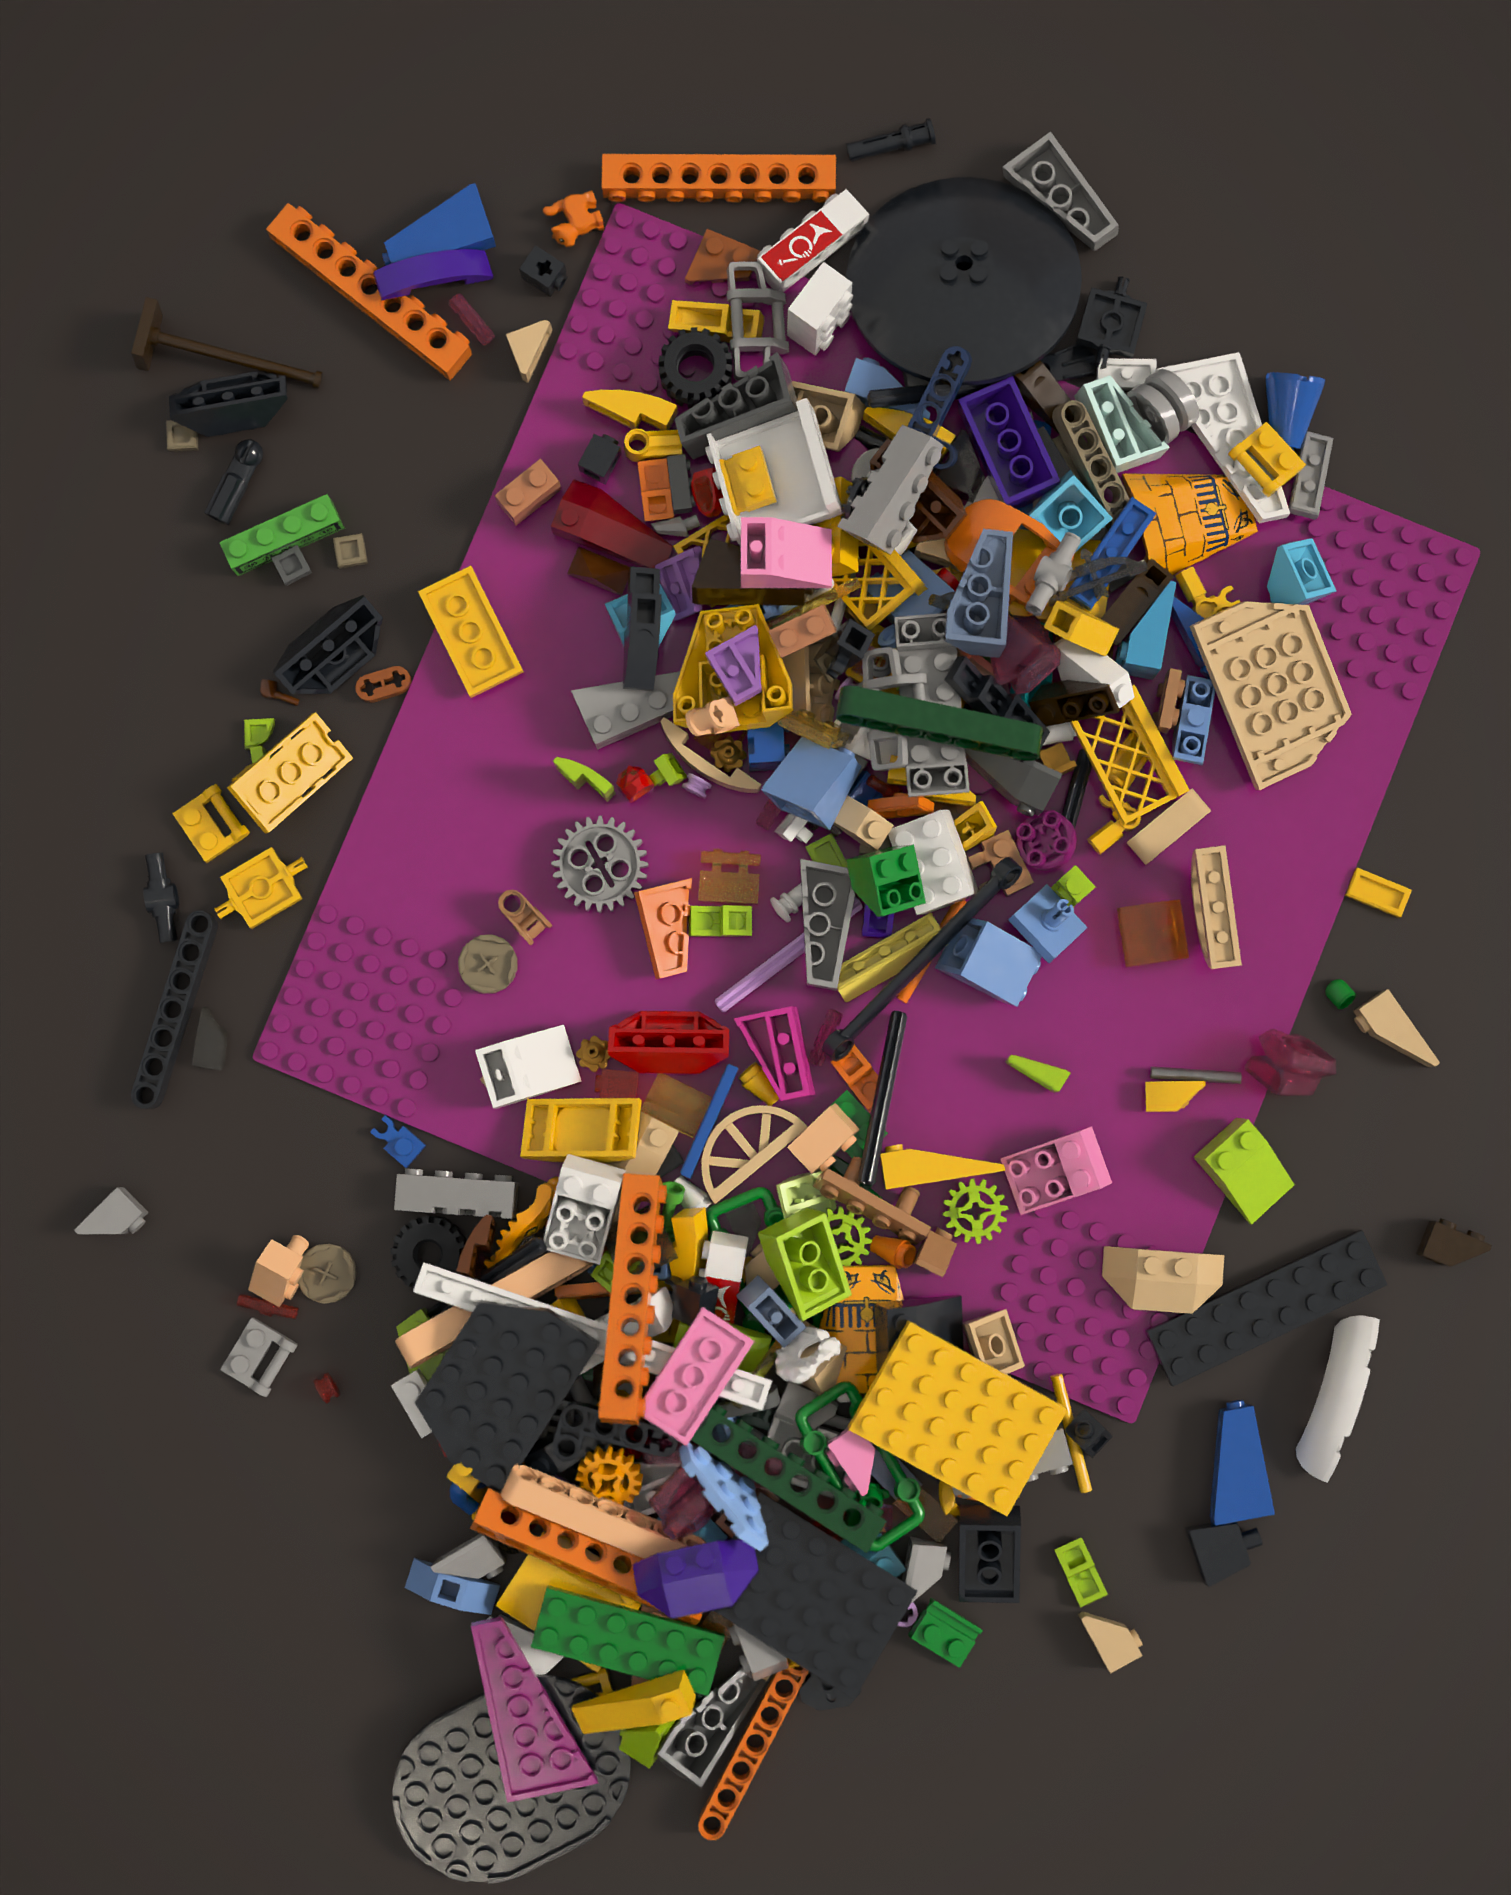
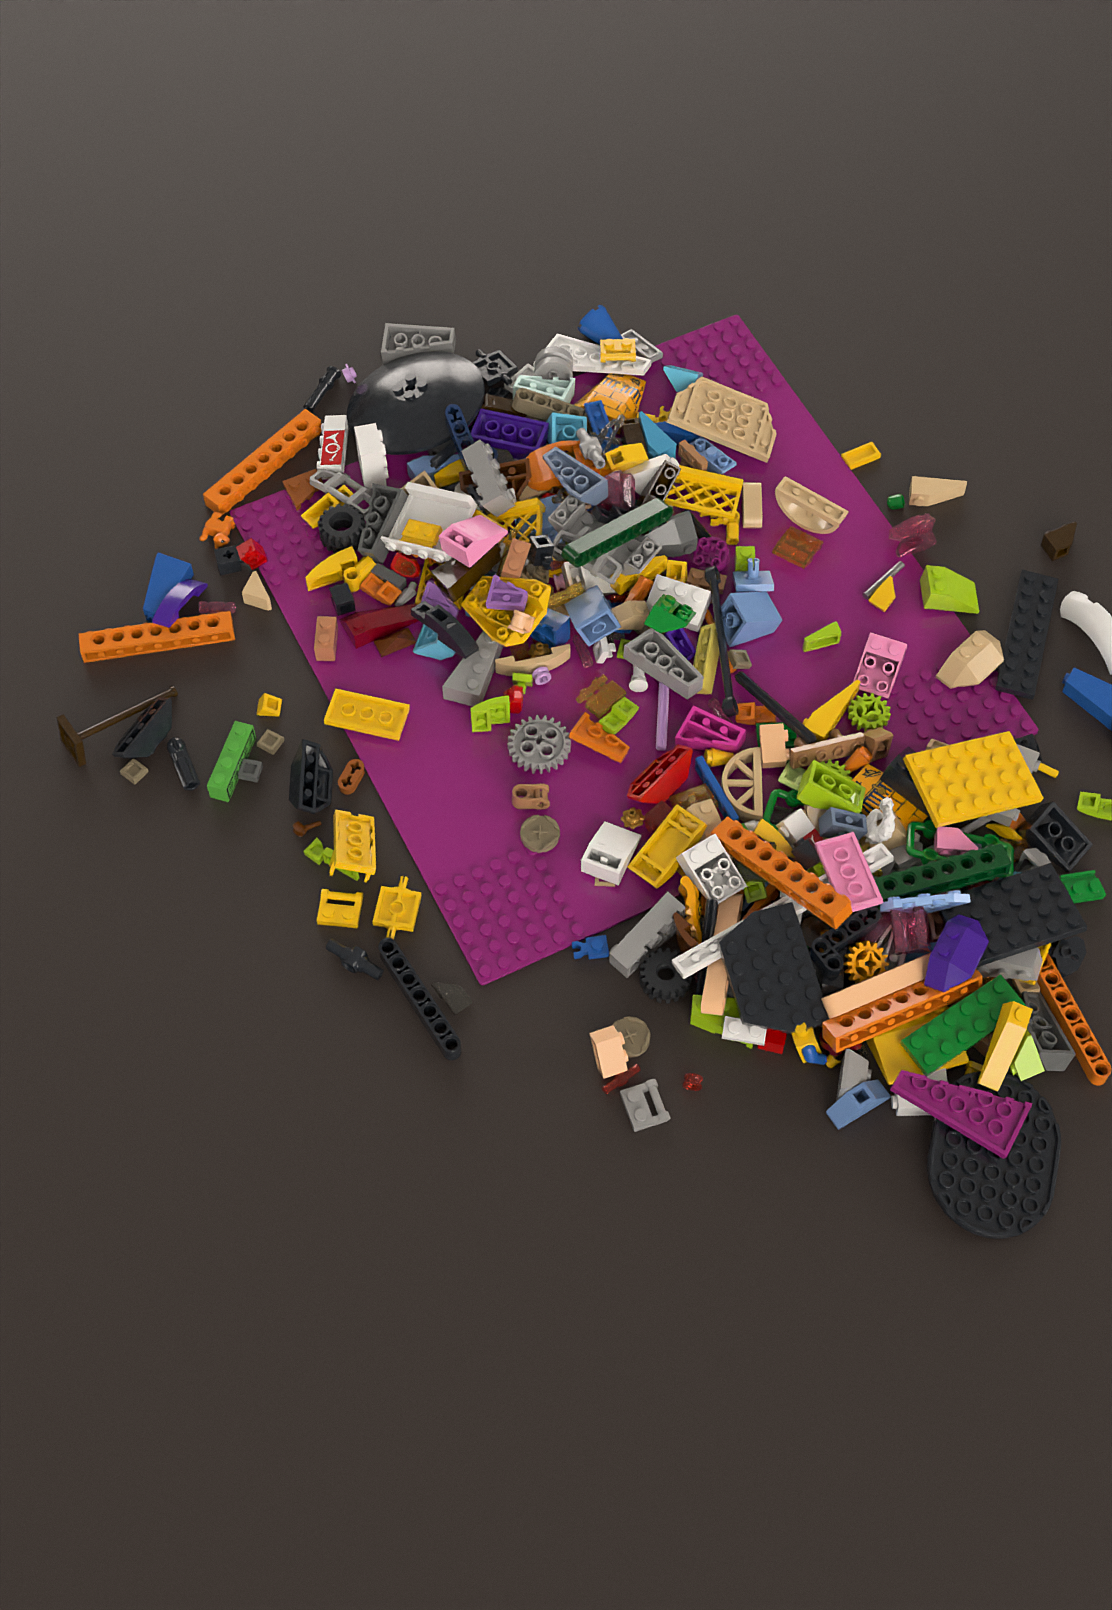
camera: 50 degrees left, 25 degrees down
(115, 1215) = (501, 1115): light grey slope -> none
(395, 505) = (269, 705): none -> yellow slope
(571, 293) = (252, 553): none -> red brick
(922, 996) = (739, 659): none -> dark tan tile
(944, 153) = (349, 374): none -> lavender plate

